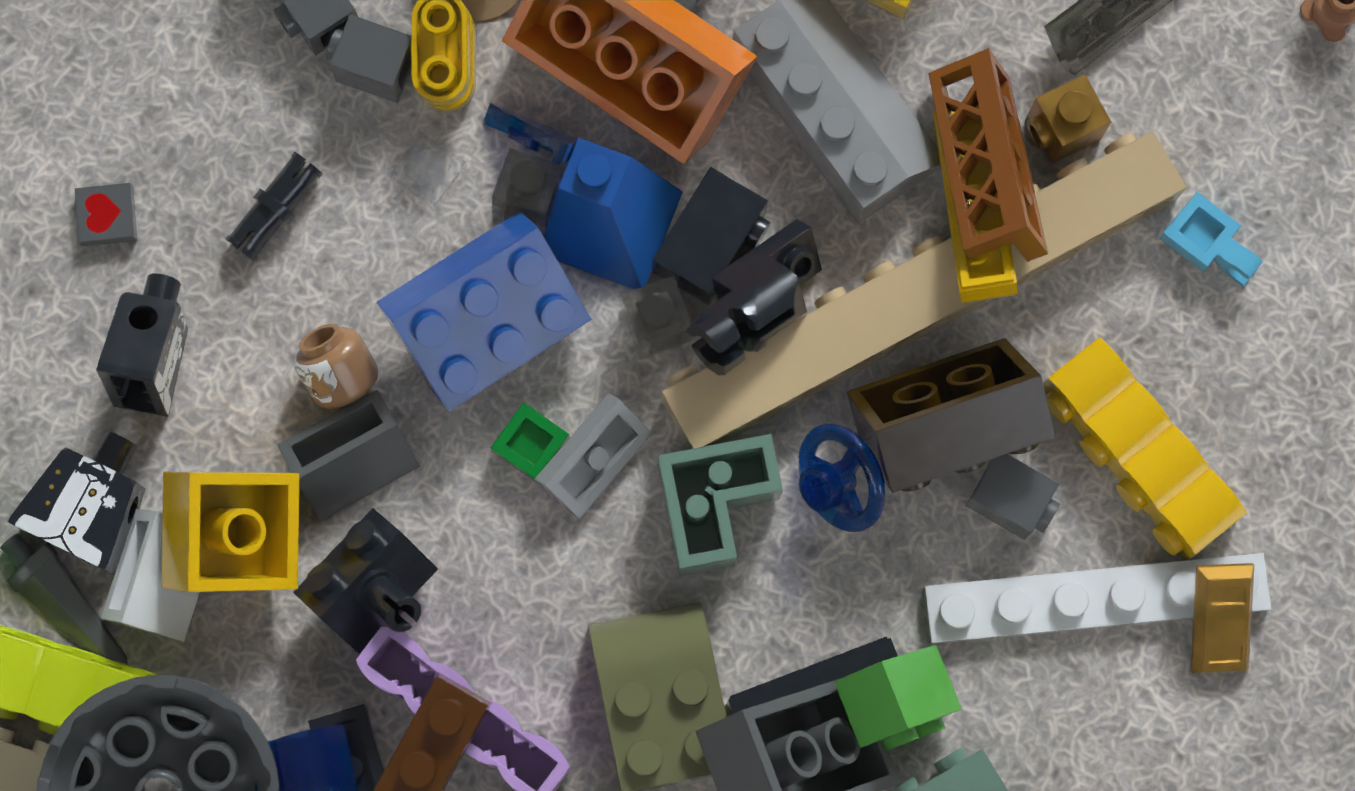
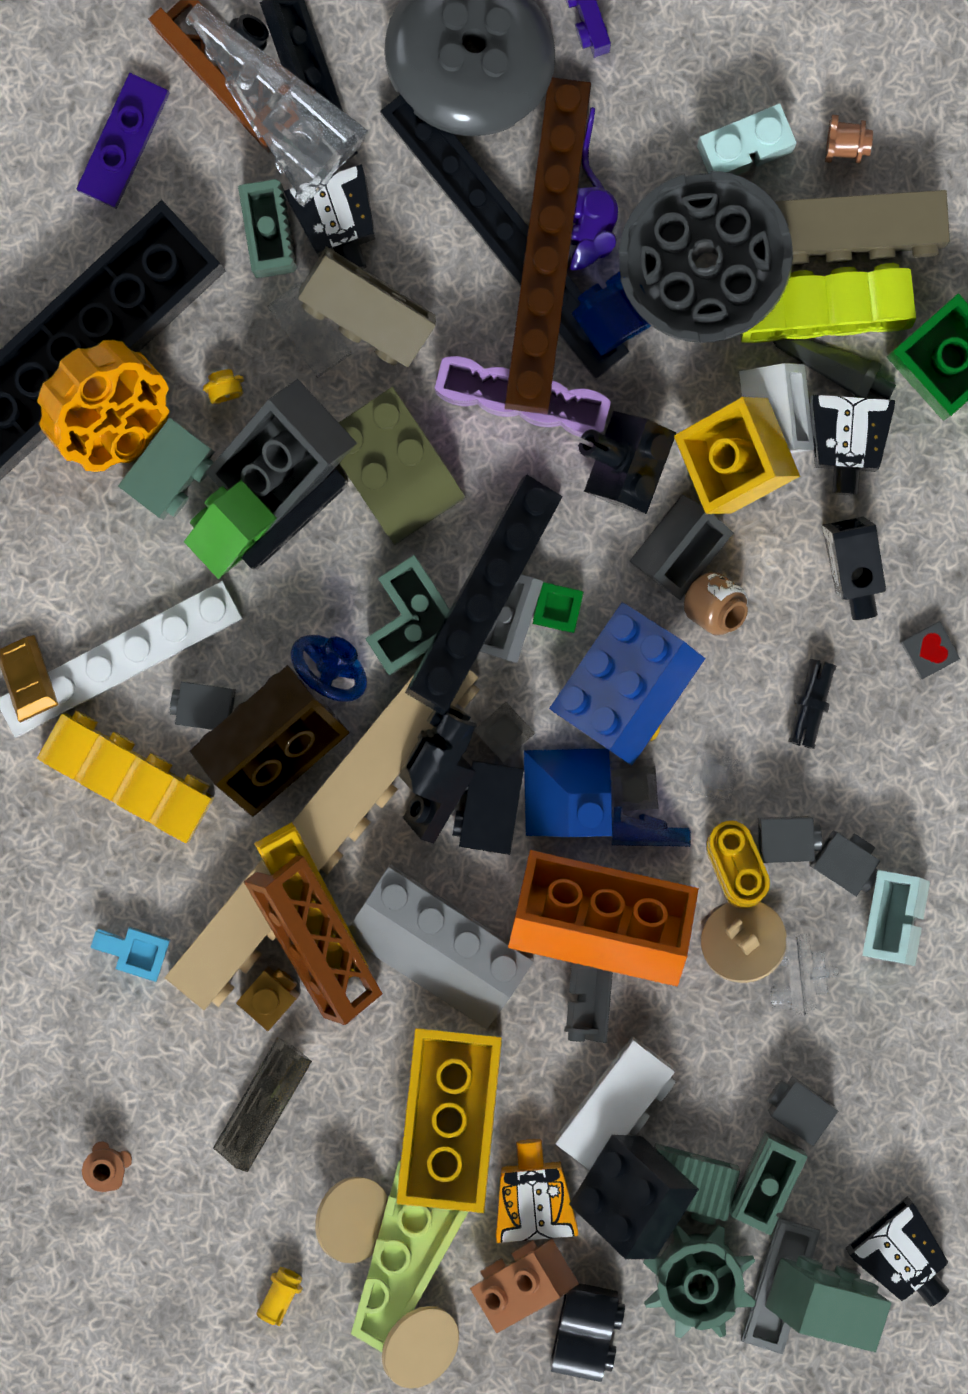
camera: 160 degrees right, 10 degrees up
(613, 485) = (483, 595): none -> black plate

